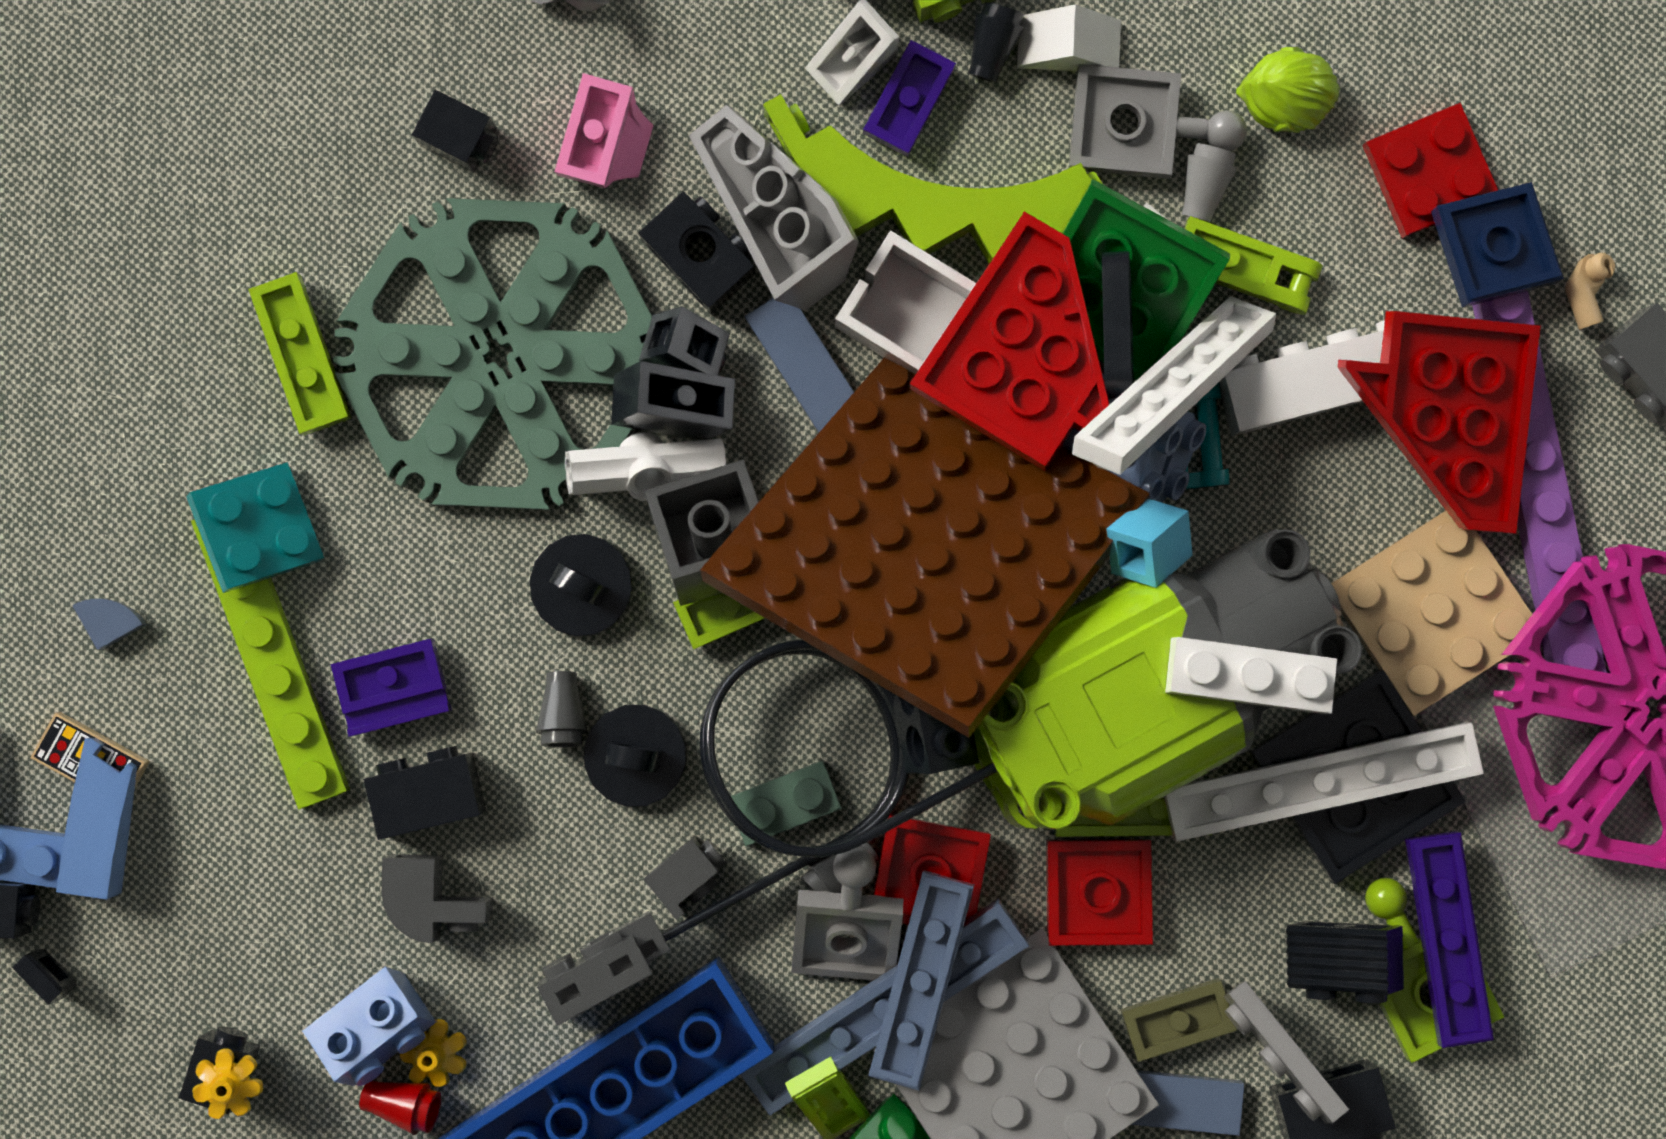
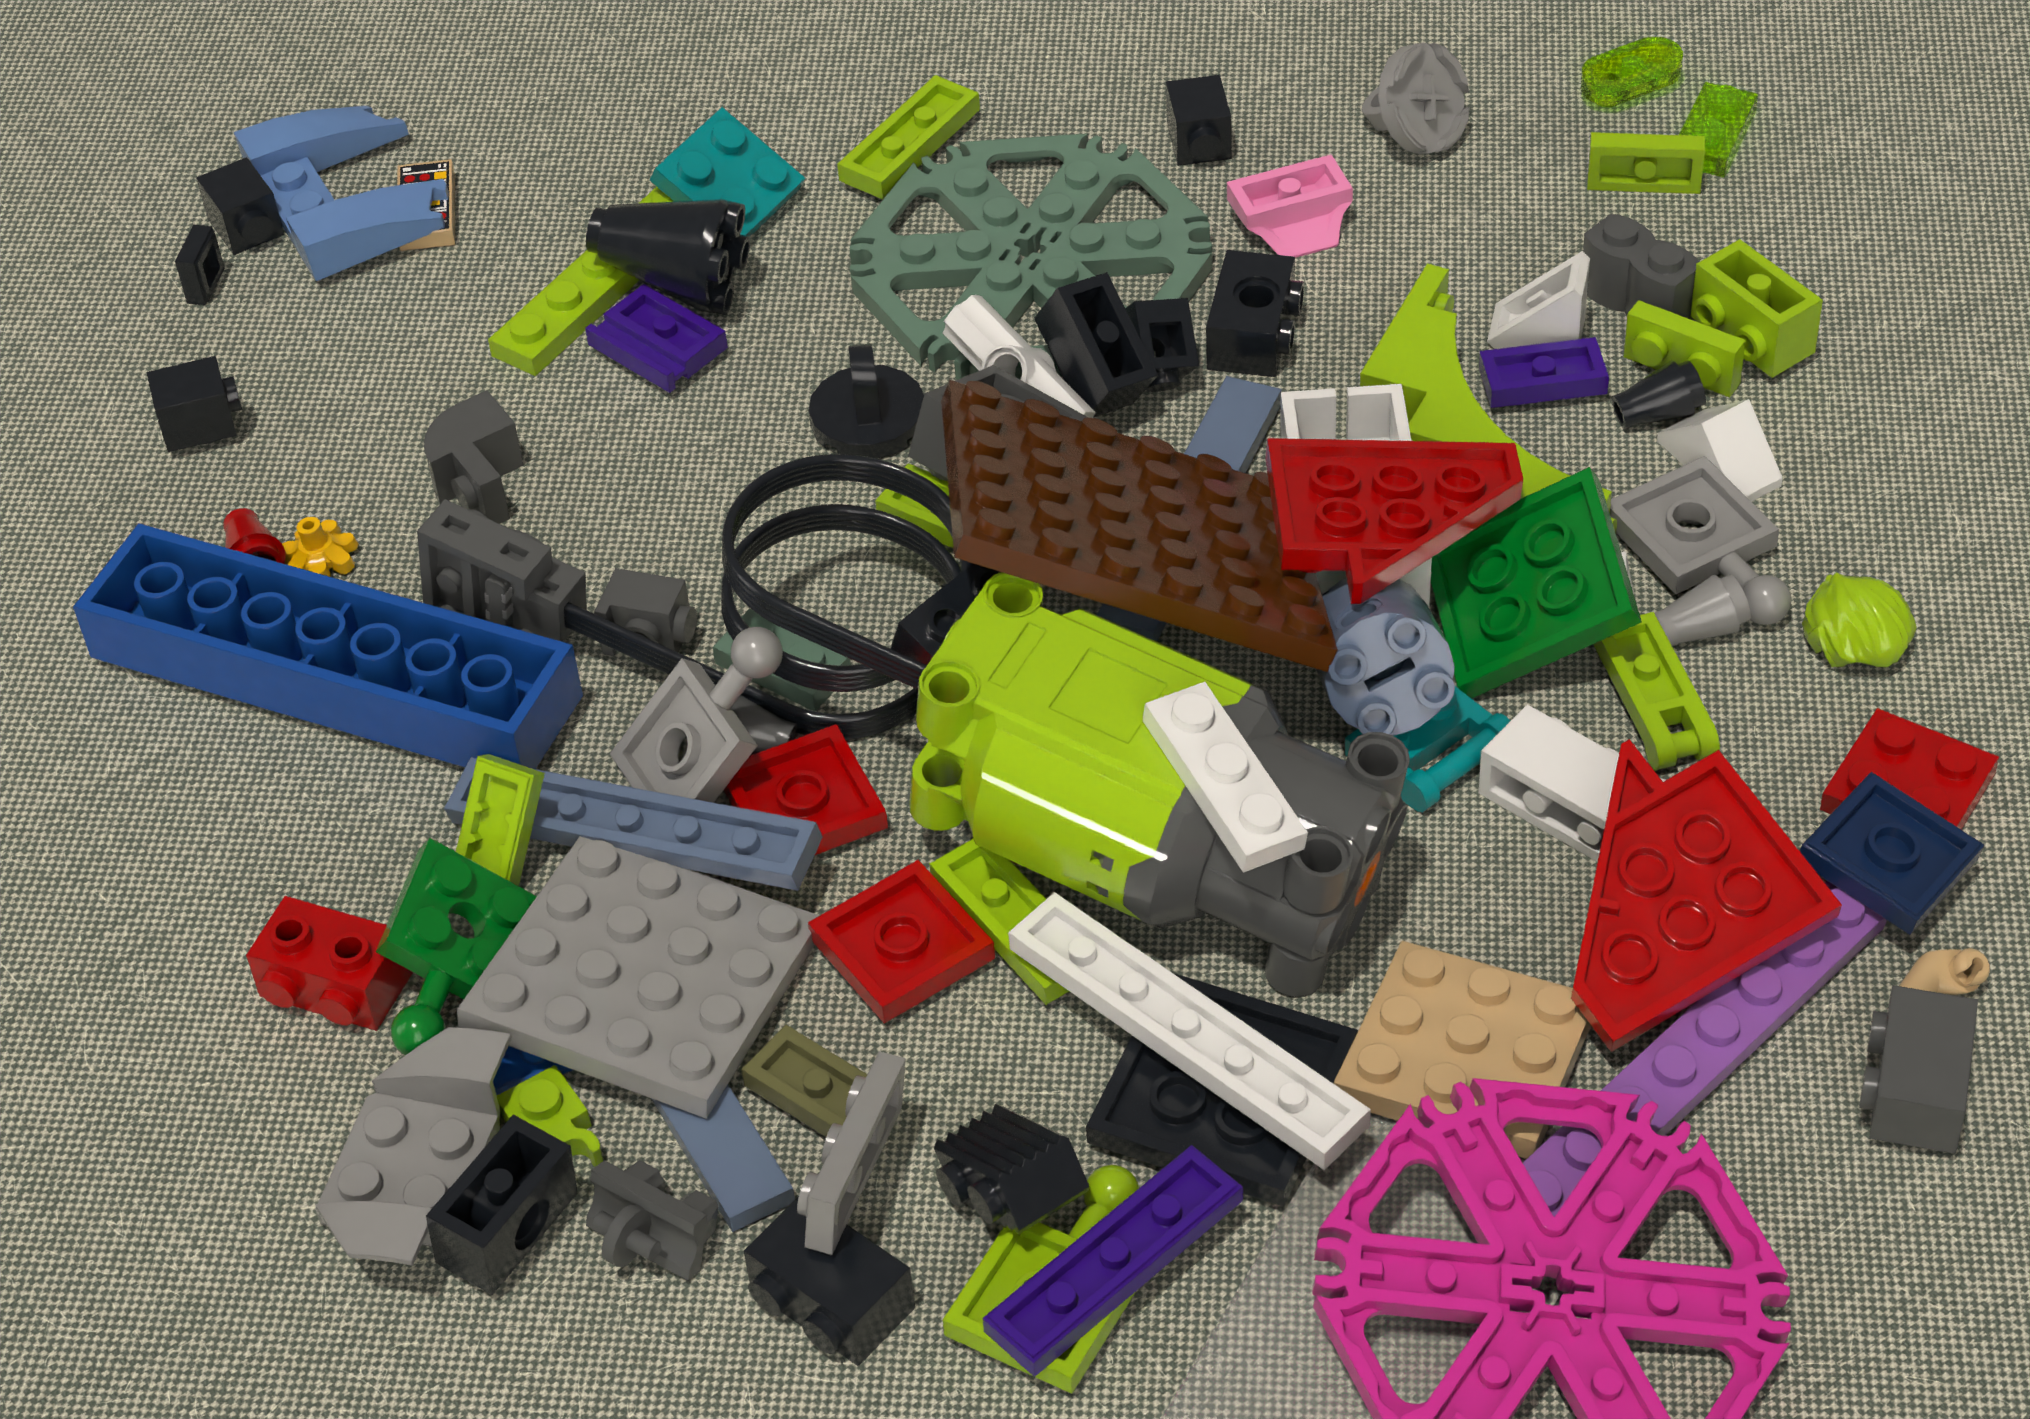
camera: 60 degrees right, 40 degrees down
(107, 621) = (561, 154): sand blue tile -> none
(233, 1077) = (183, 386): yellow plant -> none
(322, 628) = (675, 247): none -> black cone
(369, 1028) = (312, 476): medium blue brick -> none
(425, 794) = (572, 405): black brick -> none
(561, 712) = (730, 454): dark grey cone -> none
(635, 755) = (702, 522): black tile -> none
(779, 210) = (1333, 333): light grey wedge -> none
(921, 980) = (683, 808): sand blue tile -> none
(1117, 322) = (1441, 565): black beam -> none
(1150, 542) = (1289, 667): medium azure brick -> none
(1173, 385) = (1445, 605): white plate -> none

